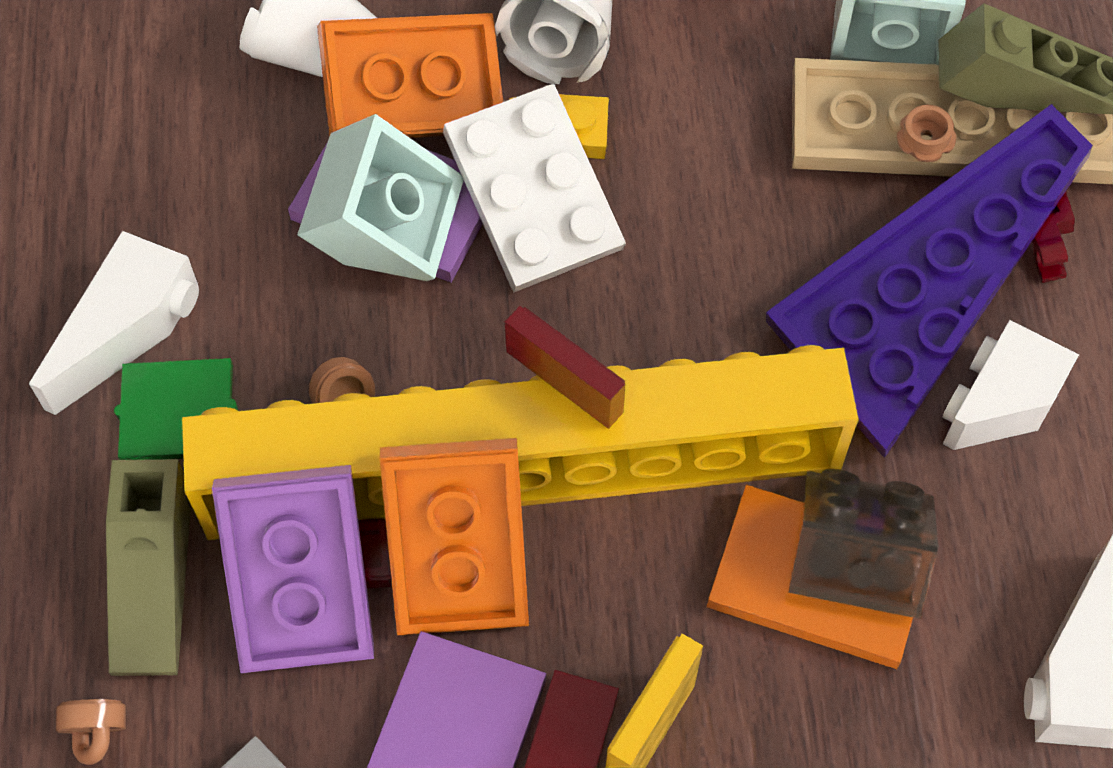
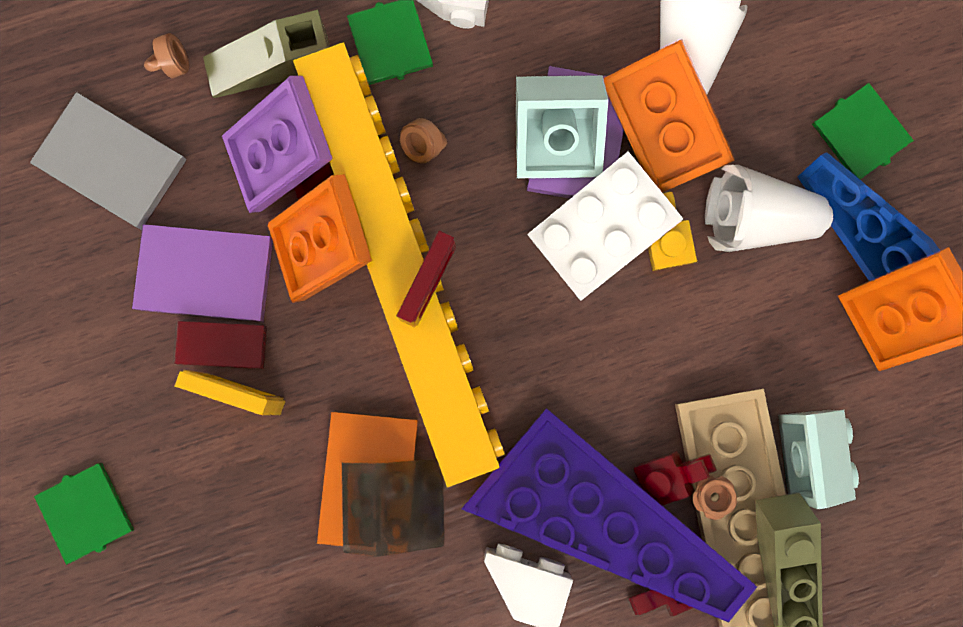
camera: 75 degrees right, 20 degrees up
(890, 185) = (671, 480): none -> dark red plate

